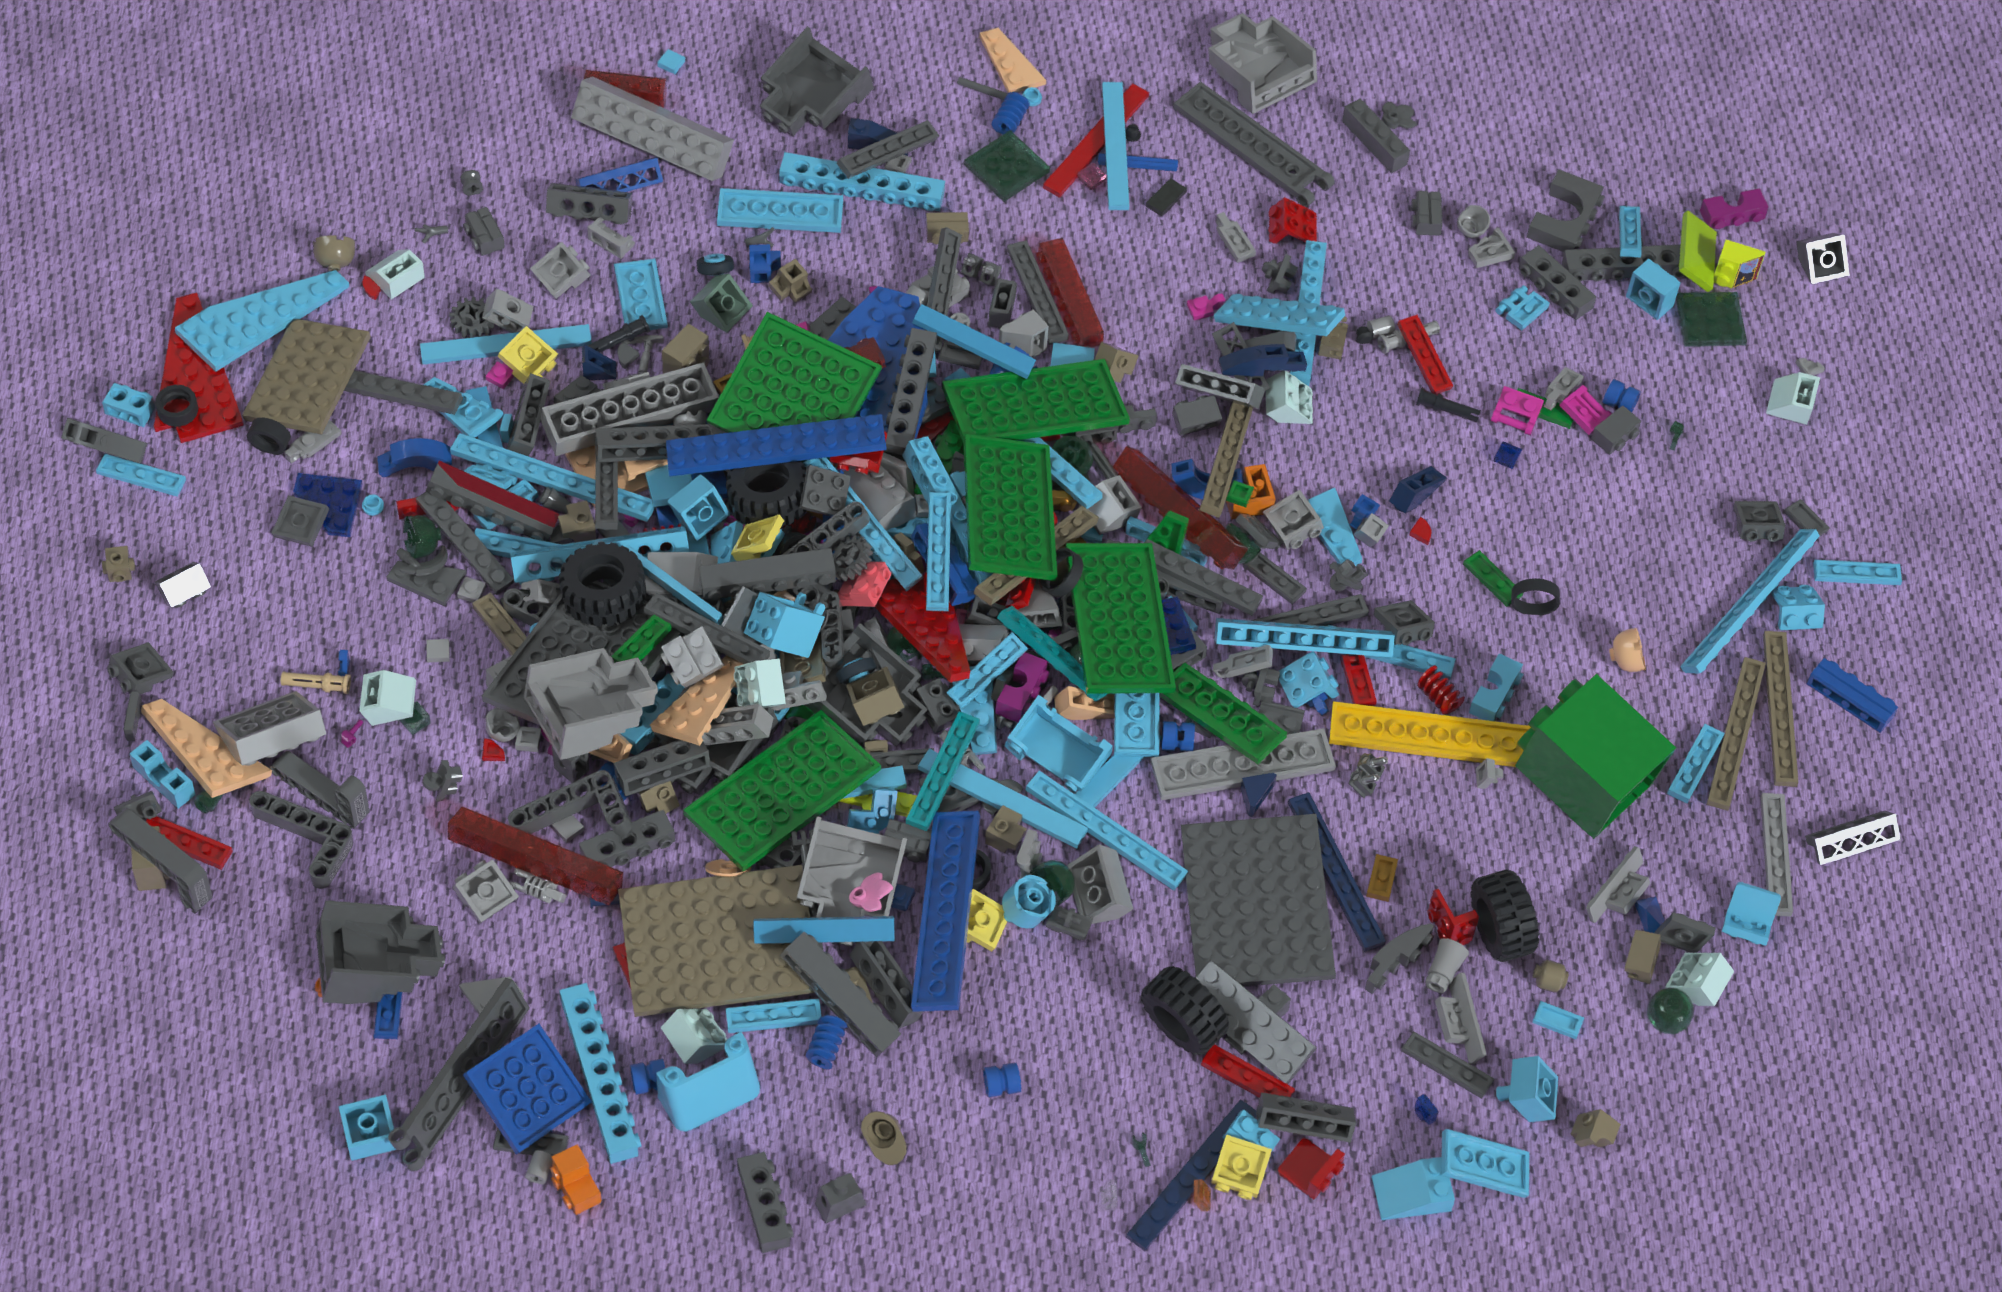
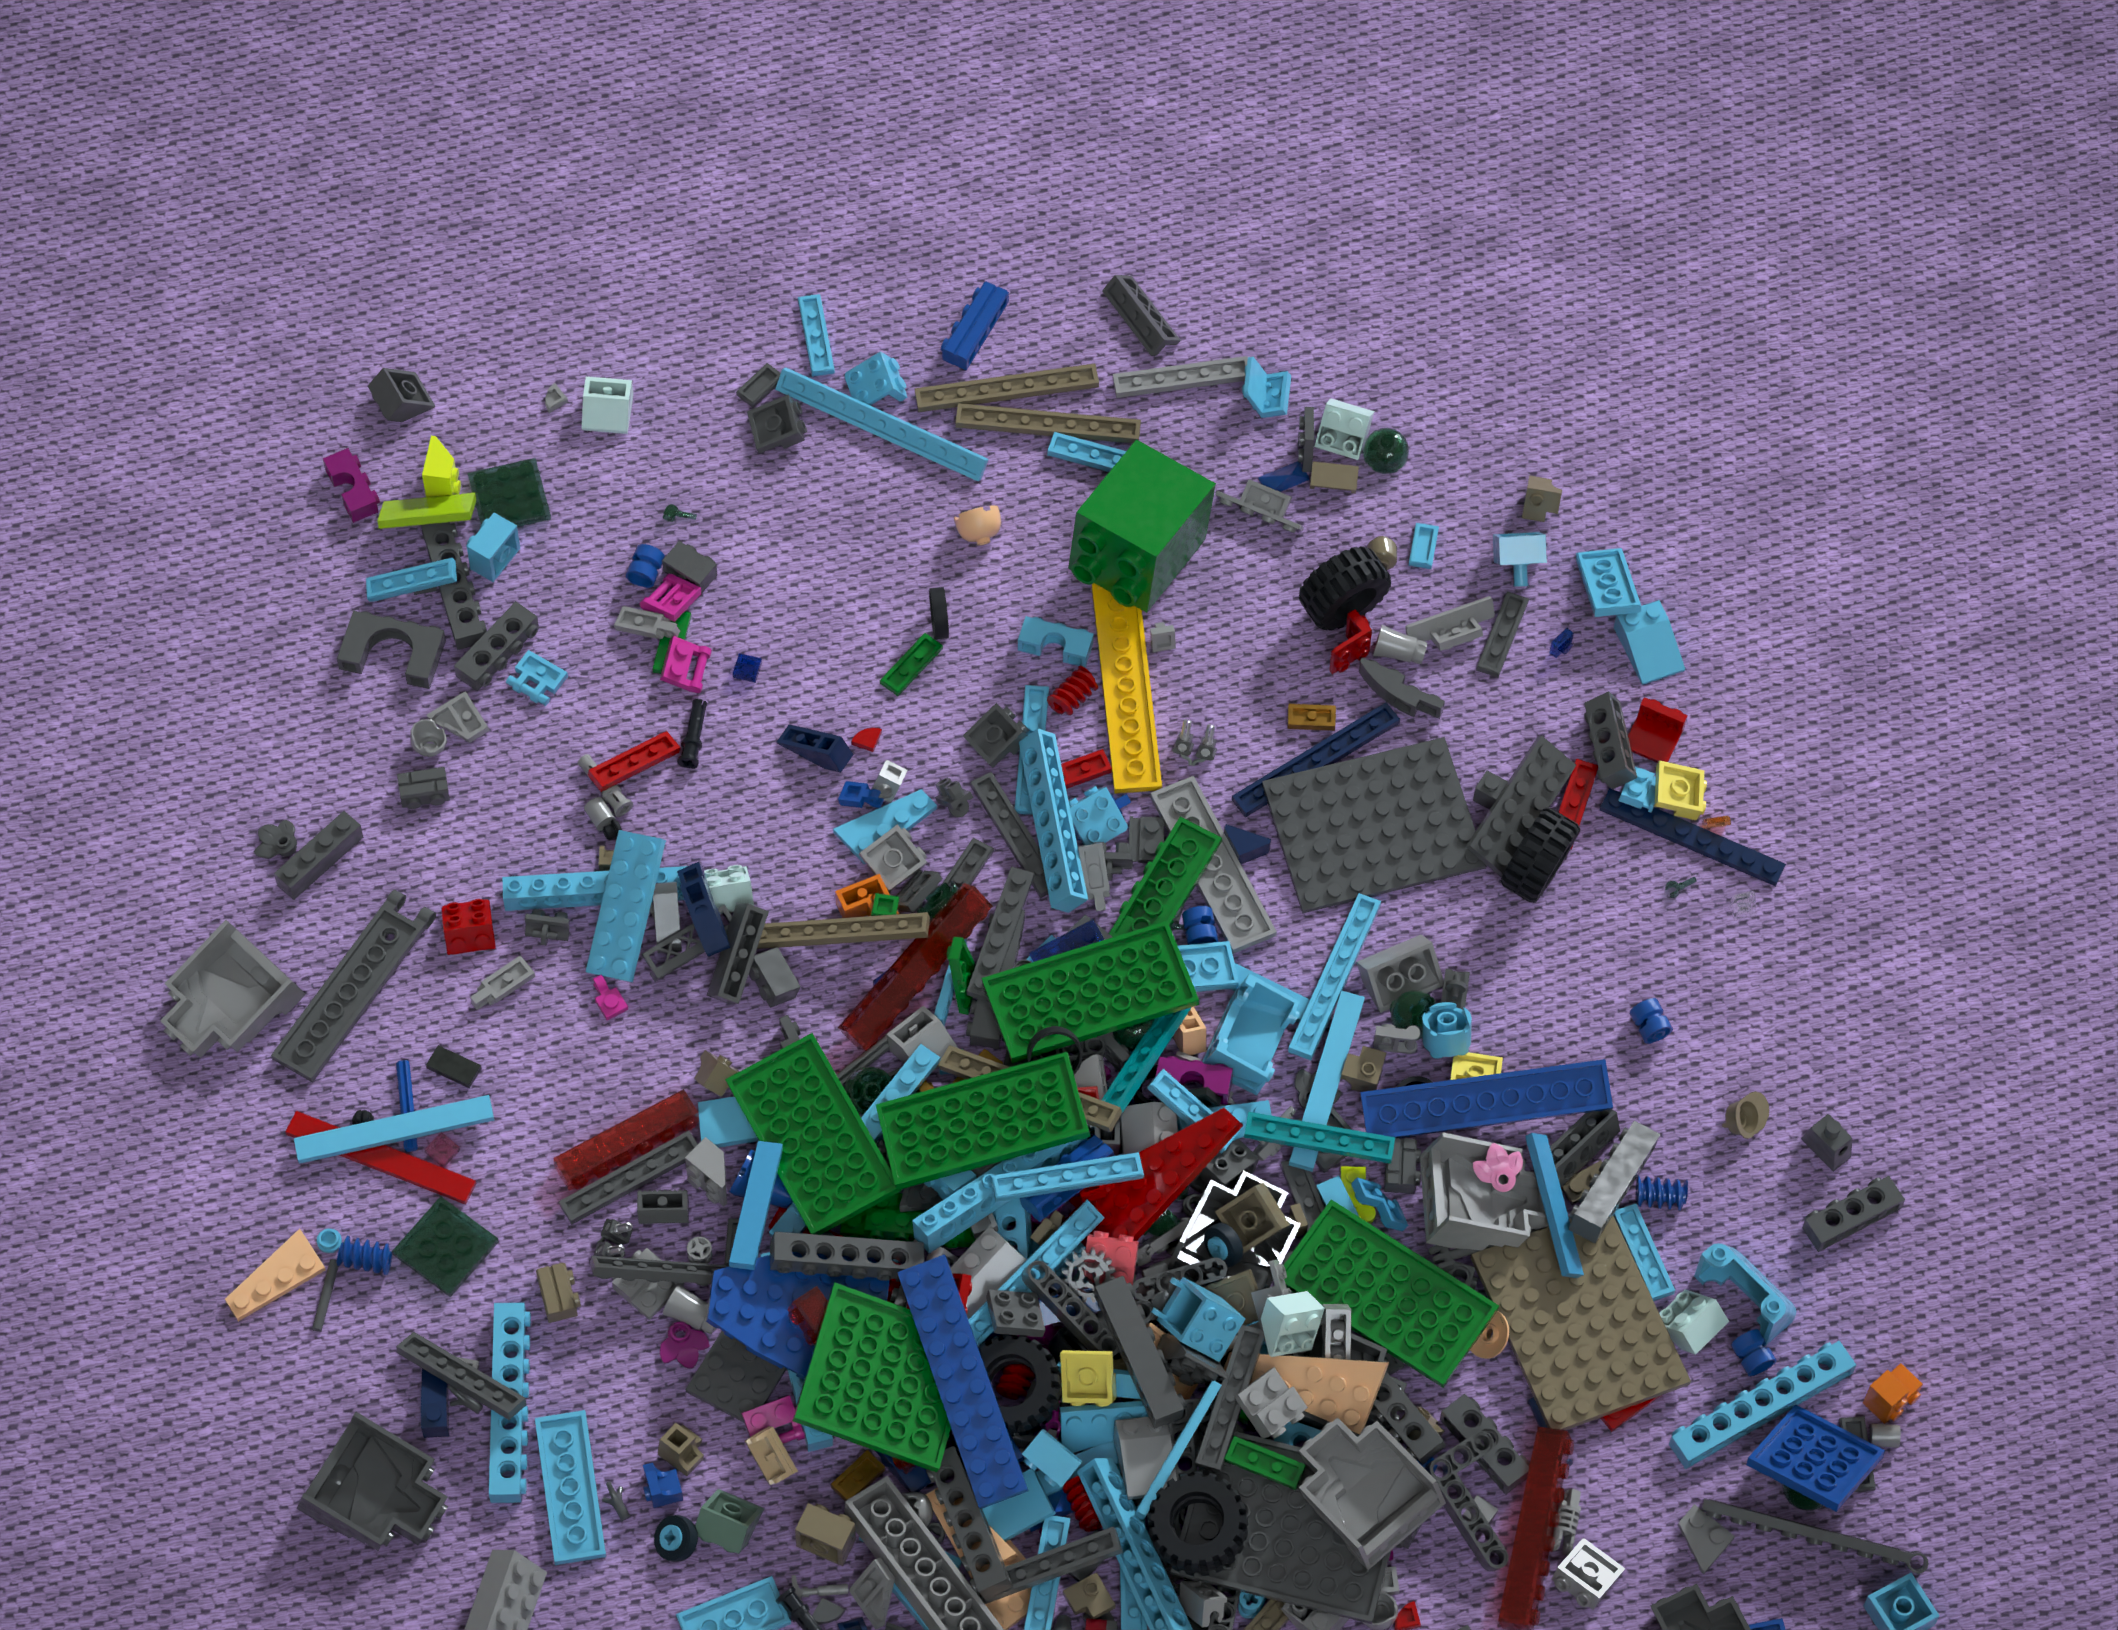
camera: 100 degrees left, 5 degrees up
(1194, 480) = (866, 958): blue arch -> none

